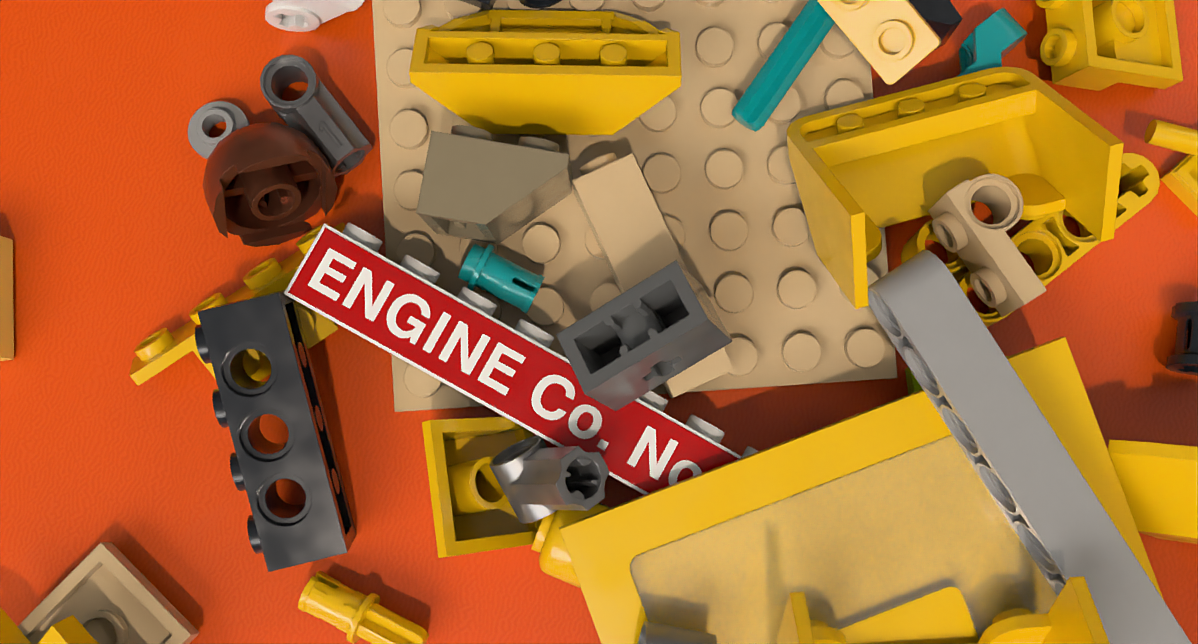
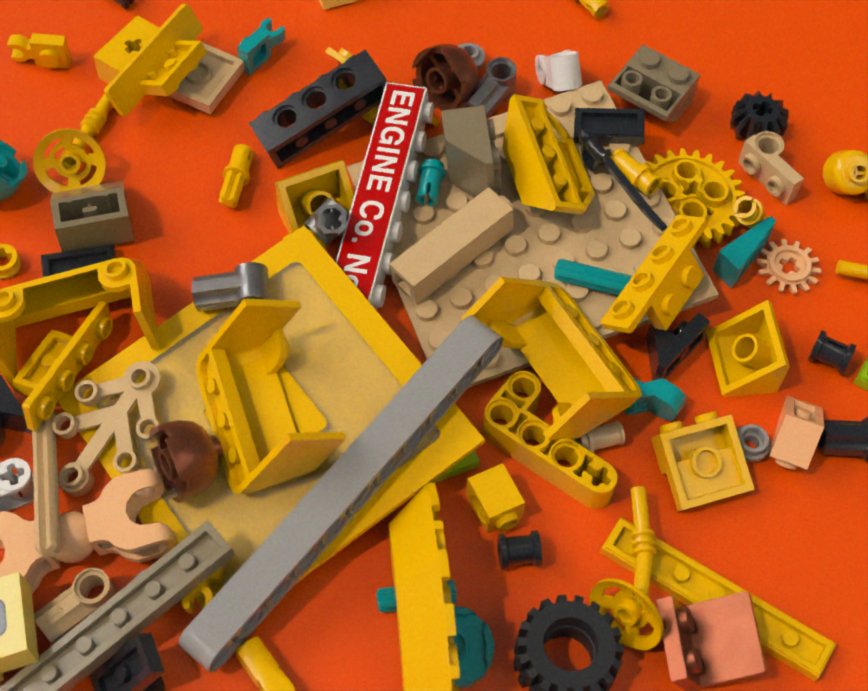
camera: 70 degrees right, 20 degrees down
(77, 511) = (257, 47): none -> teal plate
(643, 337) = (412, 224): dark grey brick -> none
(996, 266) = (525, 392): tan plate -> none
(1117, 347) = (495, 499): none -> yellow brick

